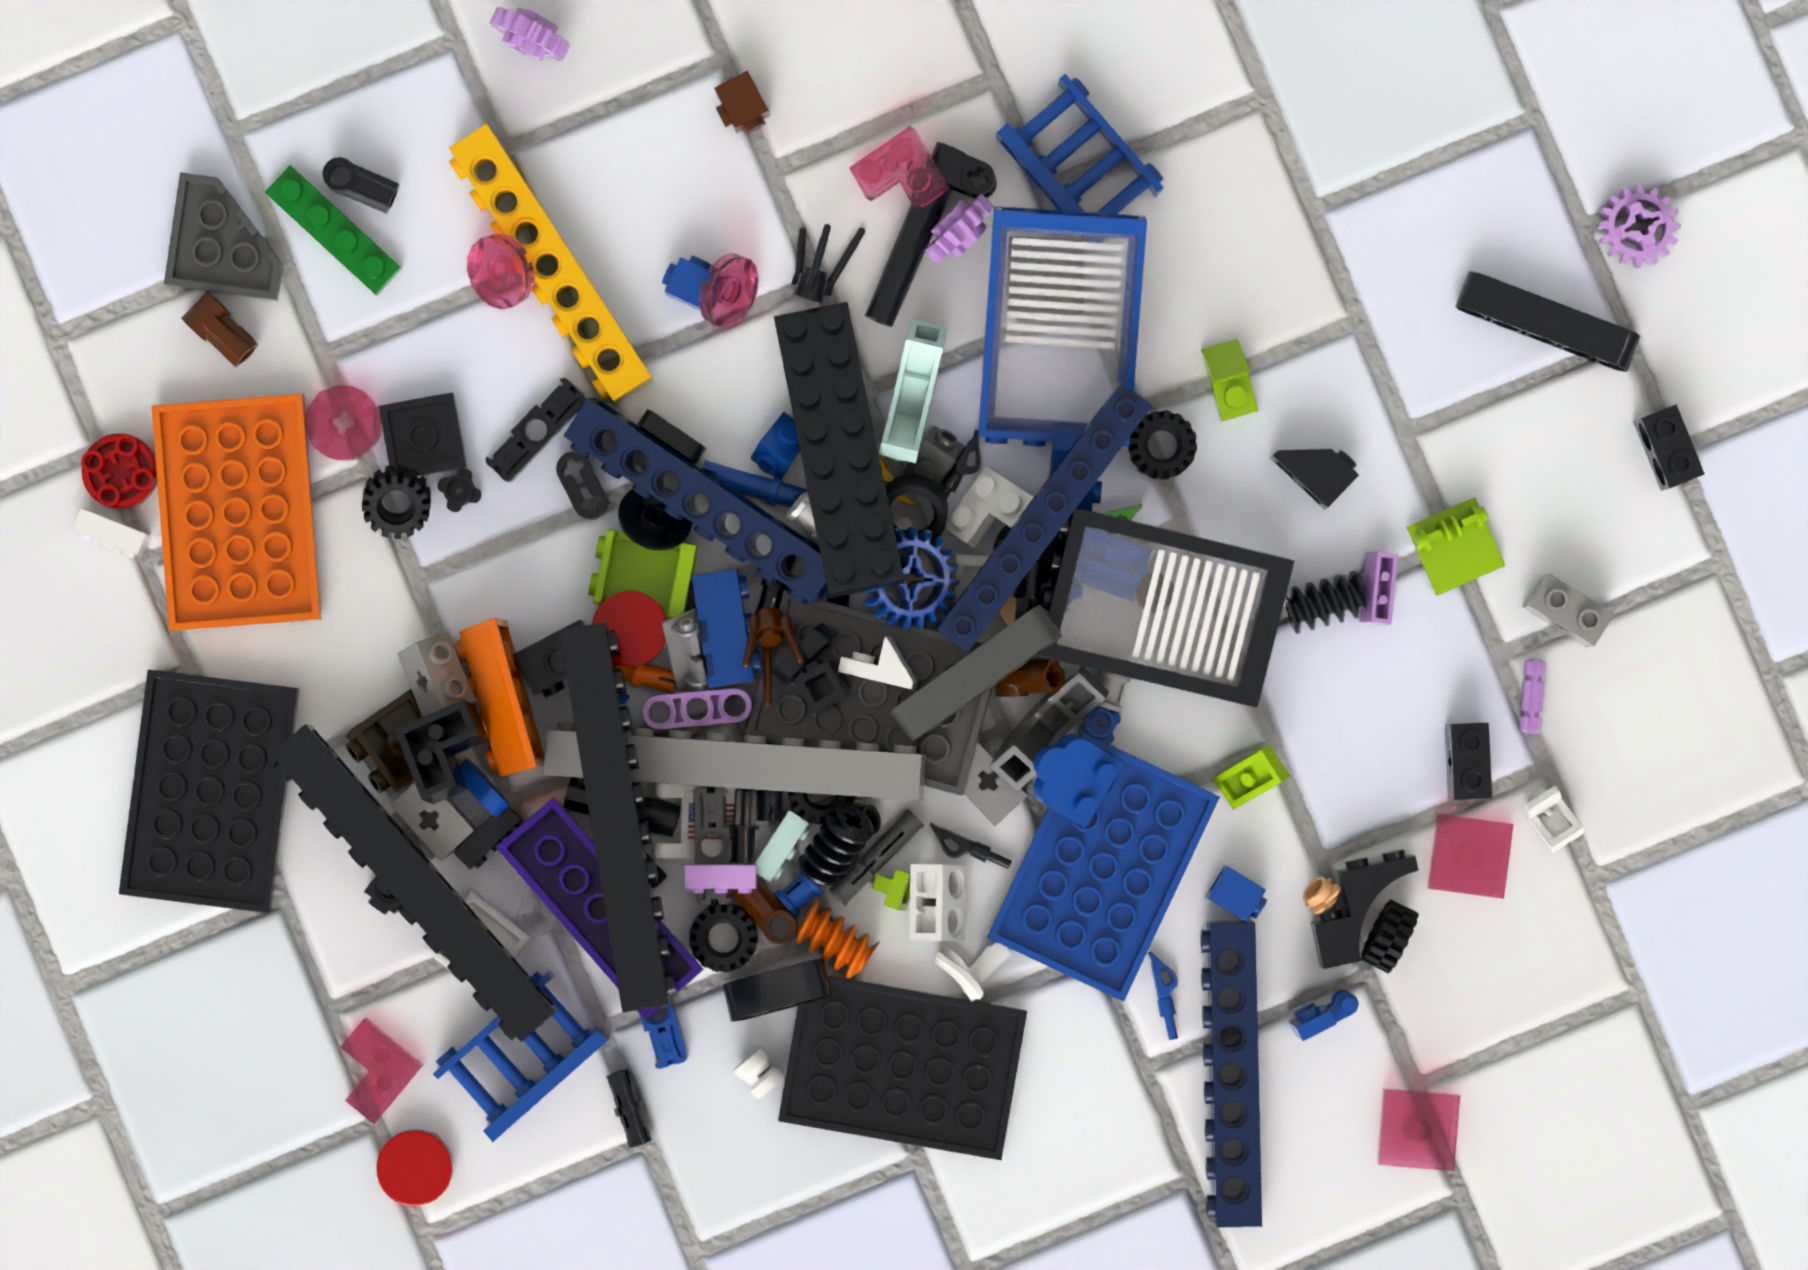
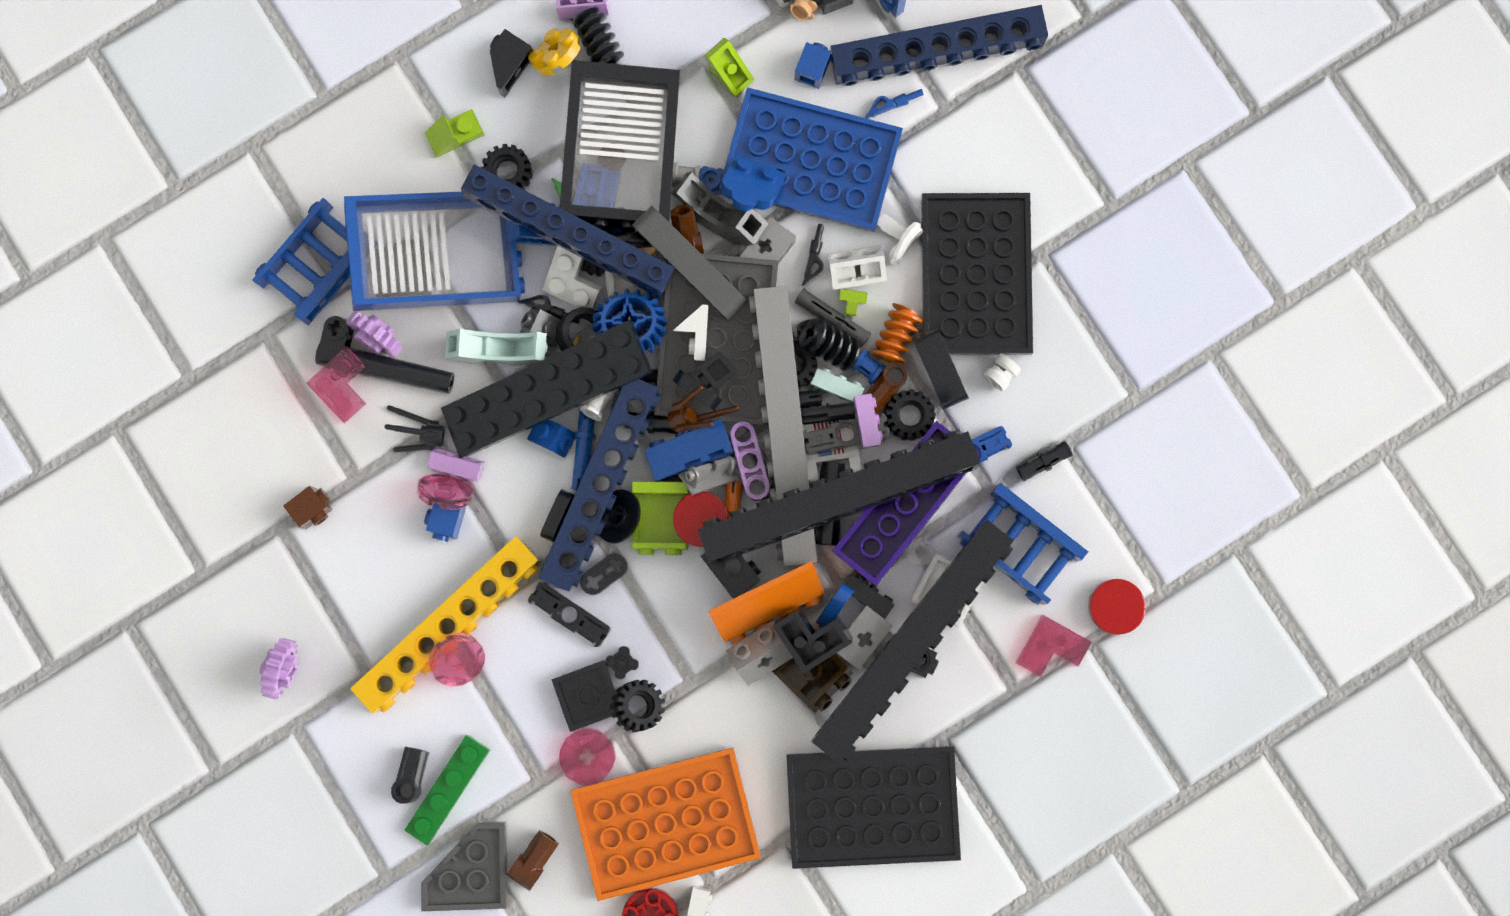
camera: 90 degrees left, 5 degrees down
(768, 302) = (450, 463): none -> lavender piece
(1314, 522) = (556, 50): none -> yellow plate

